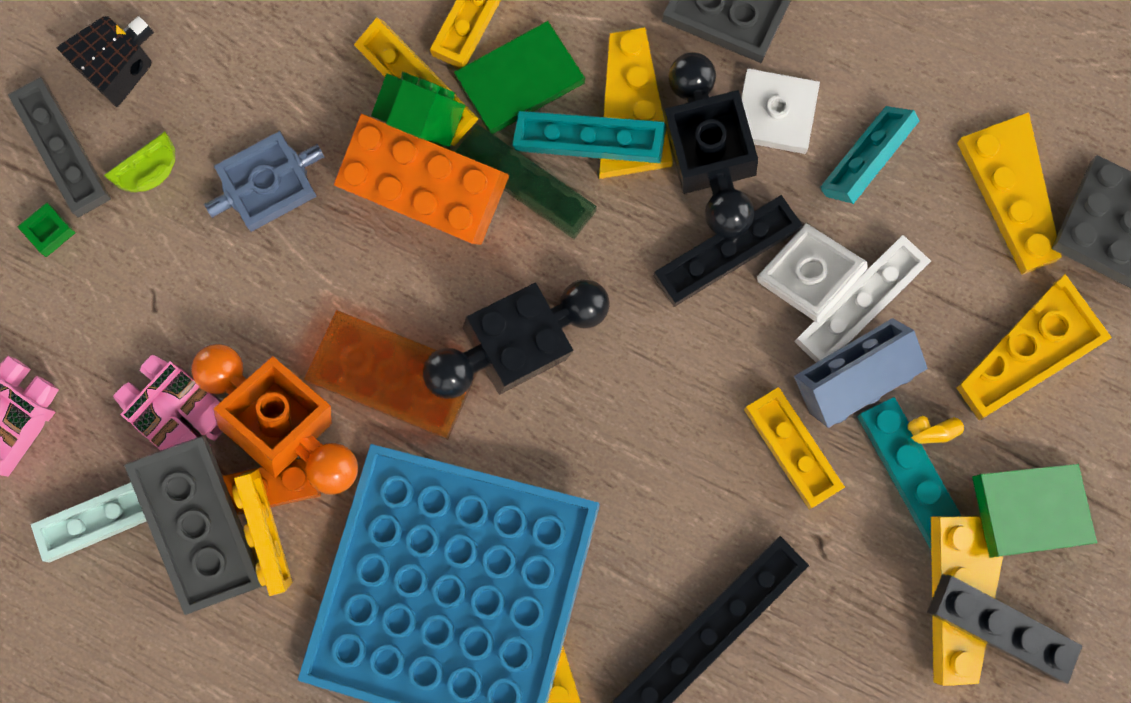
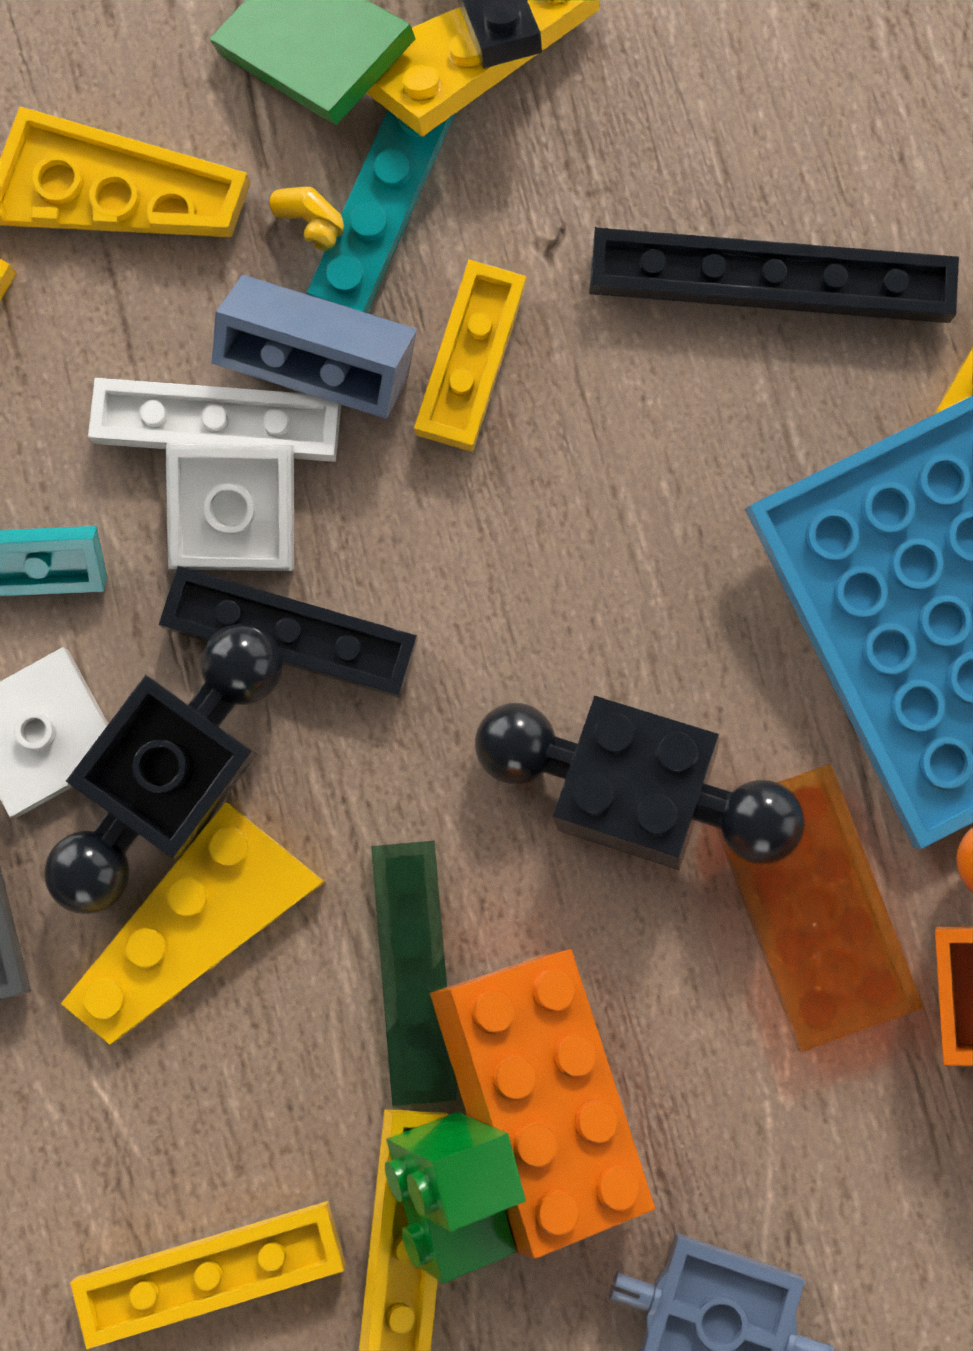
camera: 135 degrees left, 5 degrees up
(519, 77) = (274, 1113): green tile -> none
(589, 136) = (288, 934): teal plate -> none

